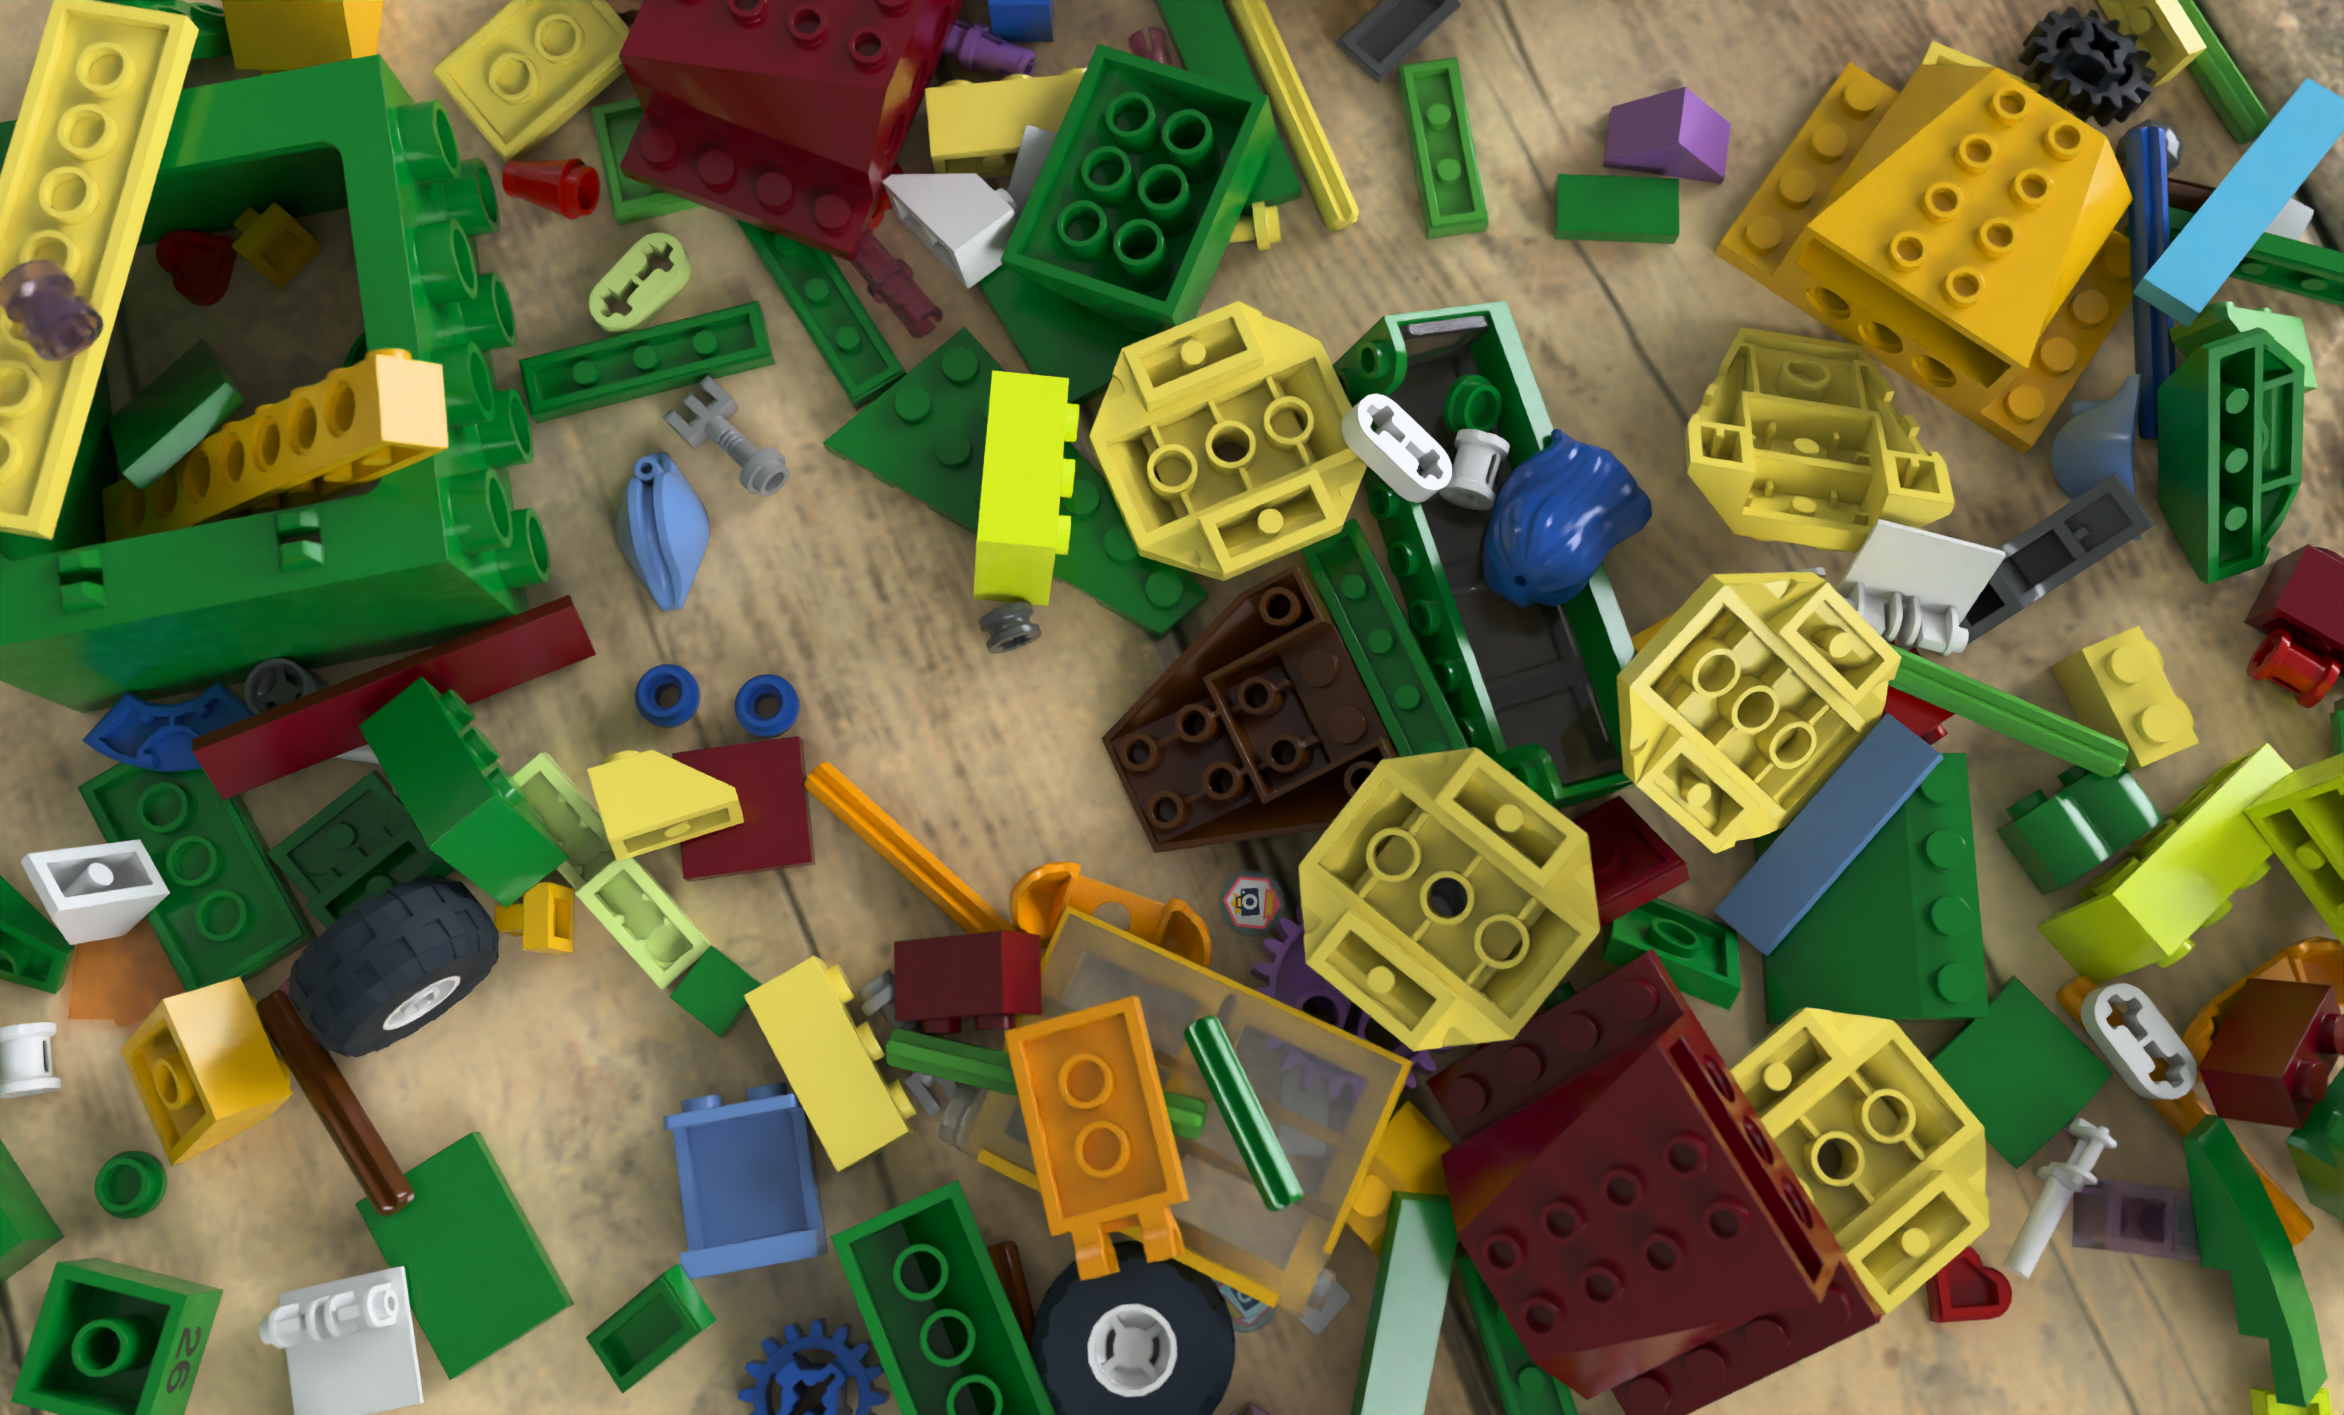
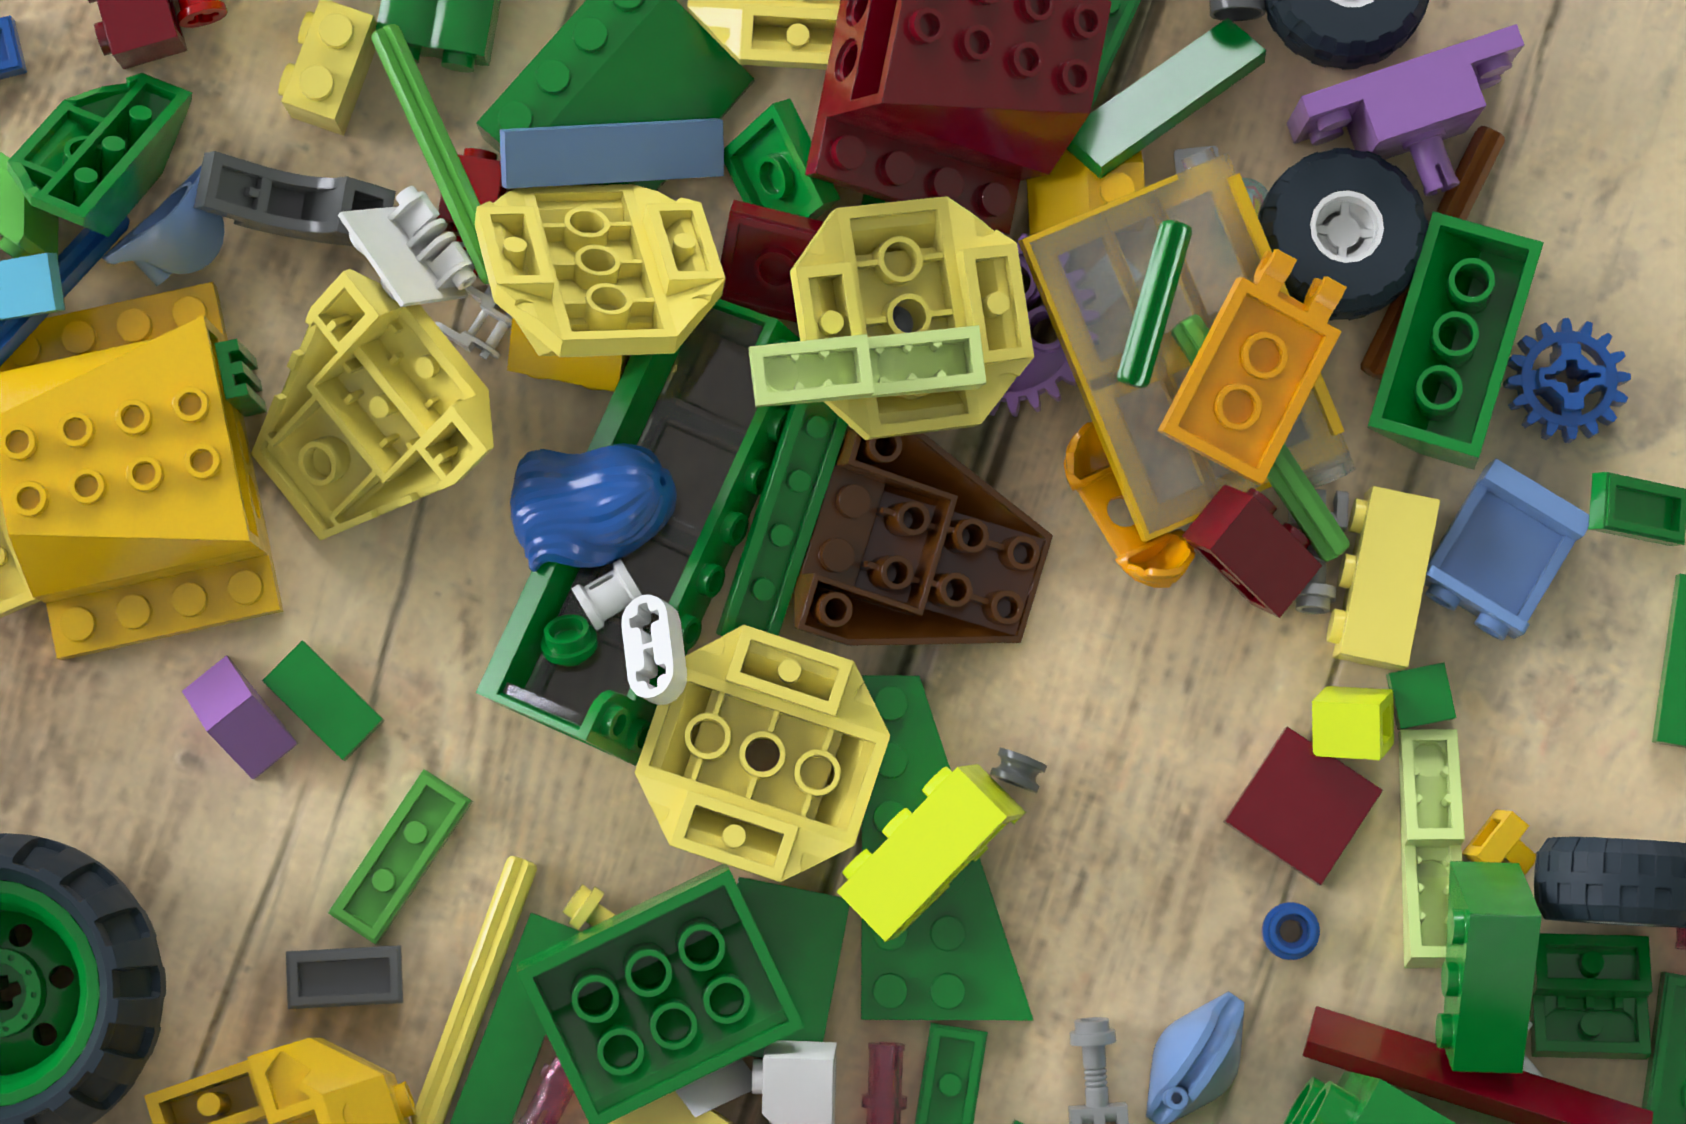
camera: 140 degrees left, 5 degrees up
(658, 802) = (1361, 849): light yellow slope -> none
(756, 912) = (1353, 722): none -> neon yellow panel
(757, 690) = (1246, 863): blue plate -> none
(904, 852) = (1219, 674): light orange axle -> none
(1251, 903) = (1019, 445): tile -> none
(1443, 801) = (867, 366): none -> yellowish green slope
(1924, 392) = (236, 368): none -> green tile

